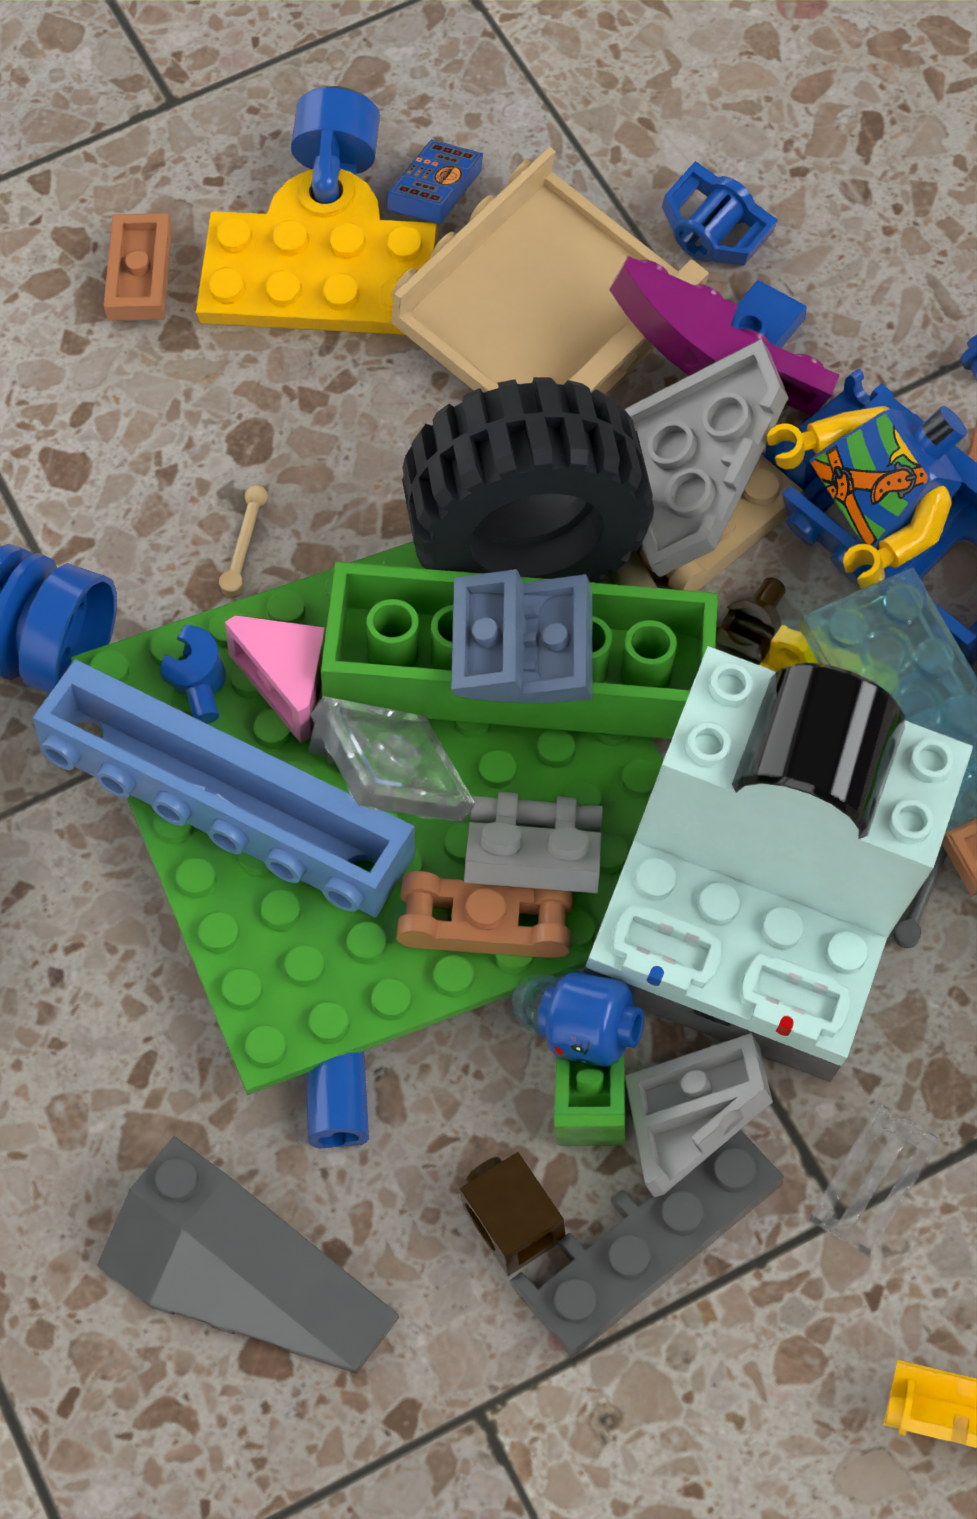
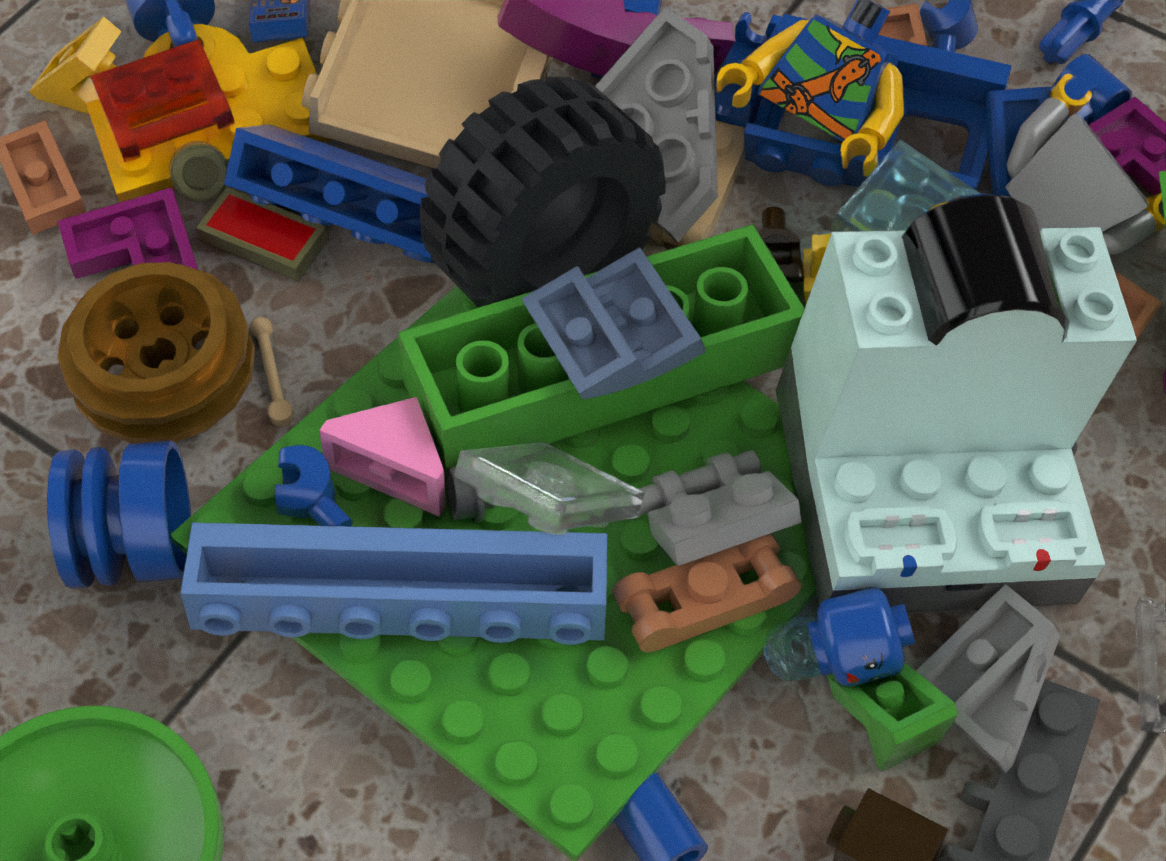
camera: 30 degrees left, 5 degrees down
(152, 511) = (149, 325): none -> pearl gold wheel
(197, 360) = (125, 233): none -> magenta plate
(226, 177) = (67, 75): none -> yellow slope
(273, 224) = (157, 88): none -> clear red plate
(276, 320) = (198, 171): none -> olive tile
(304, 404) = (262, 234): none -> tile
(368, 373) = (329, 186): none -> blue brick

